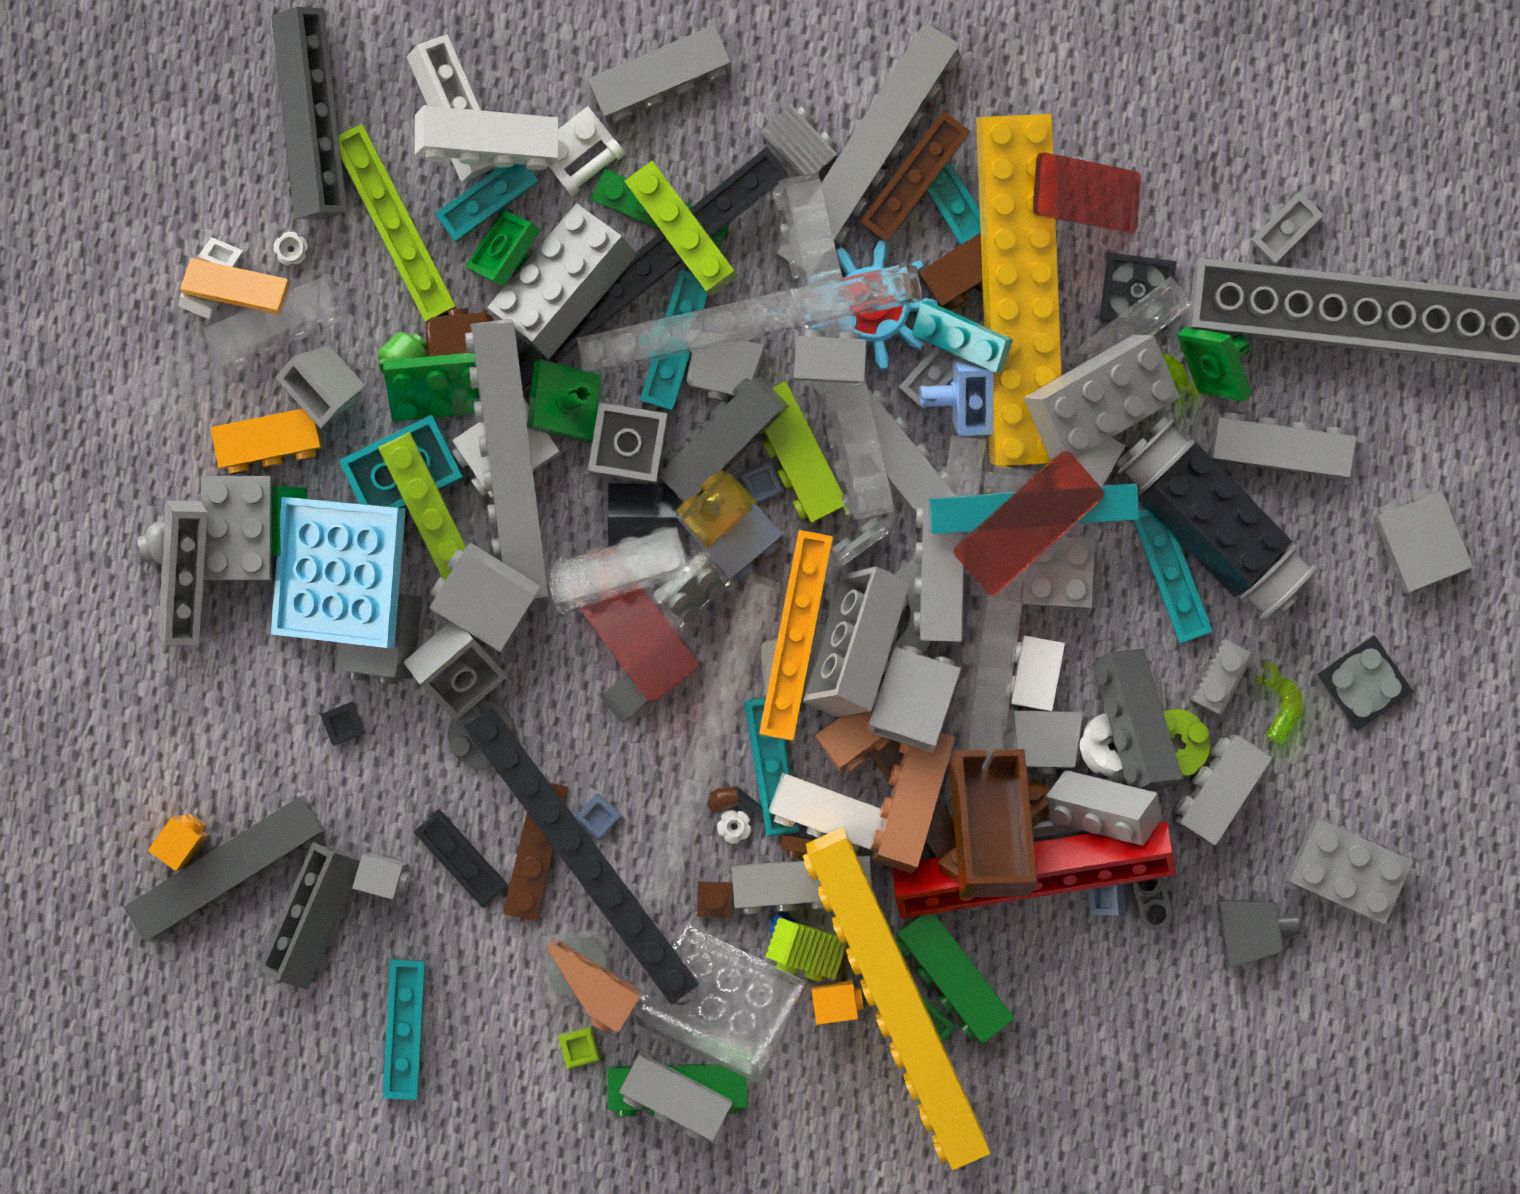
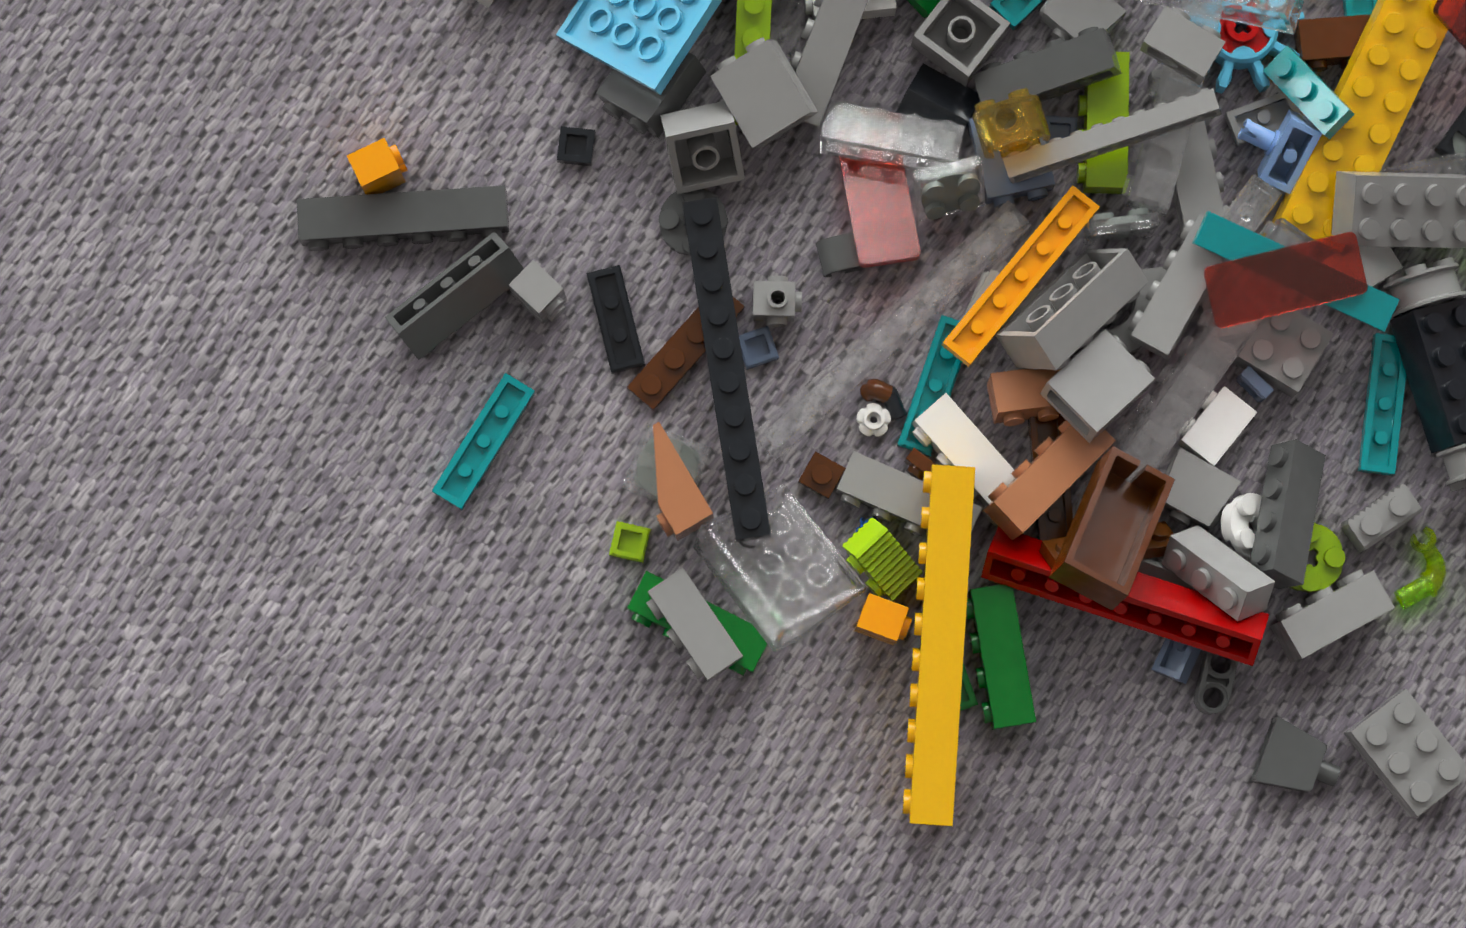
camera: 30 degrees right, 5 degrees down
(580, 774) = (776, 314): none -> light grey brick
(811, 471) = (1112, 136): none -> light grey piece
(1049, 617) = (1254, 384): none -> sand blue tile

